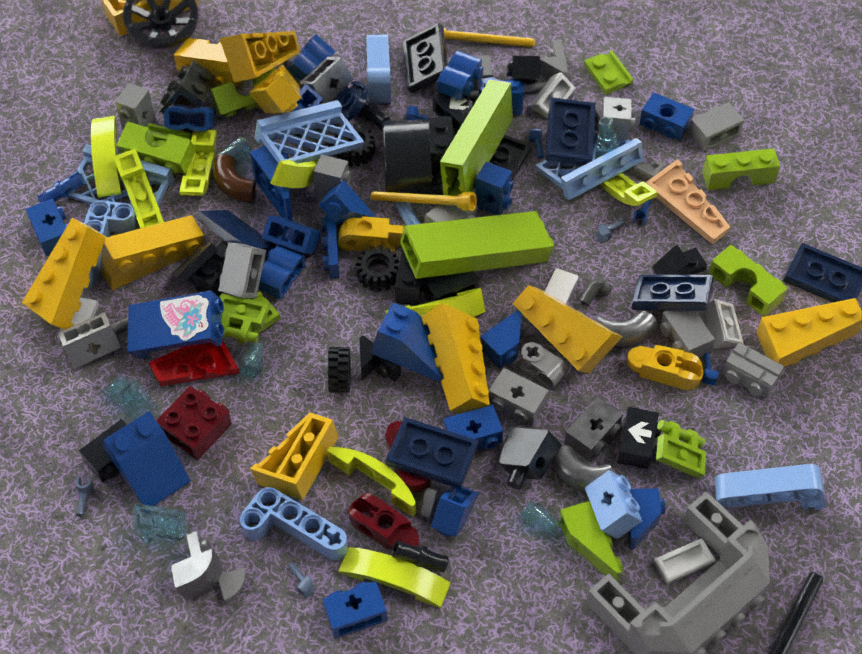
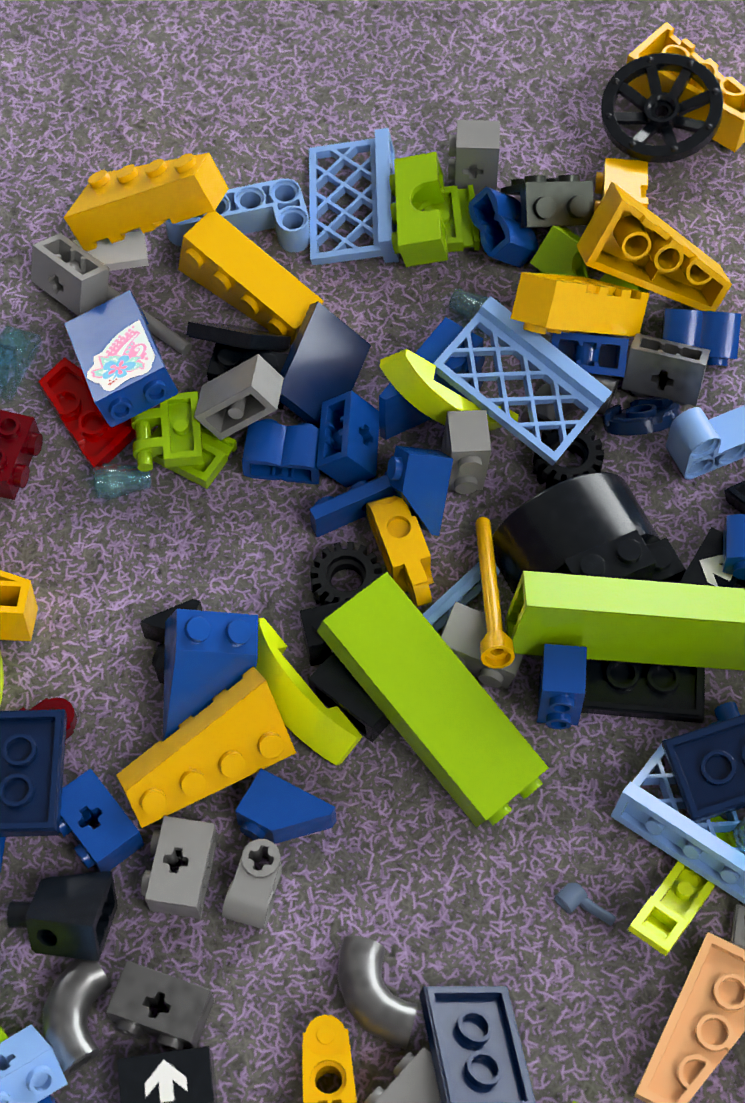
camera: 70 degrees right, 5 degrees up
(47, 223) = (244, 150): blue brick -> none
(62, 188) = (308, 138): blue pin -> none
(103, 150) = (377, 154): neon yellow slope -> none
(138, 188) = (340, 228): neon yellow slope -> none
(201, 165) = (427, 281): neon yellow slope -> none
(229, 182) = (421, 319): reddish brown cylinder -> none
(339, 369) = (130, 593): black tyre -> none
(371, 113) = (645, 457): black pin -> none
(412, 114) = (673, 520): blue hand -> none
(562, 285) = (417, 864): white tile -> none
(567, 329) = (327, 894): yellow wedge -> none
(593, 289) = (445, 918): dark grey arm -> none
(642, 212) = (645, 950): blue hand -> none
(680, 263) = (559, 1052): black slope -> none

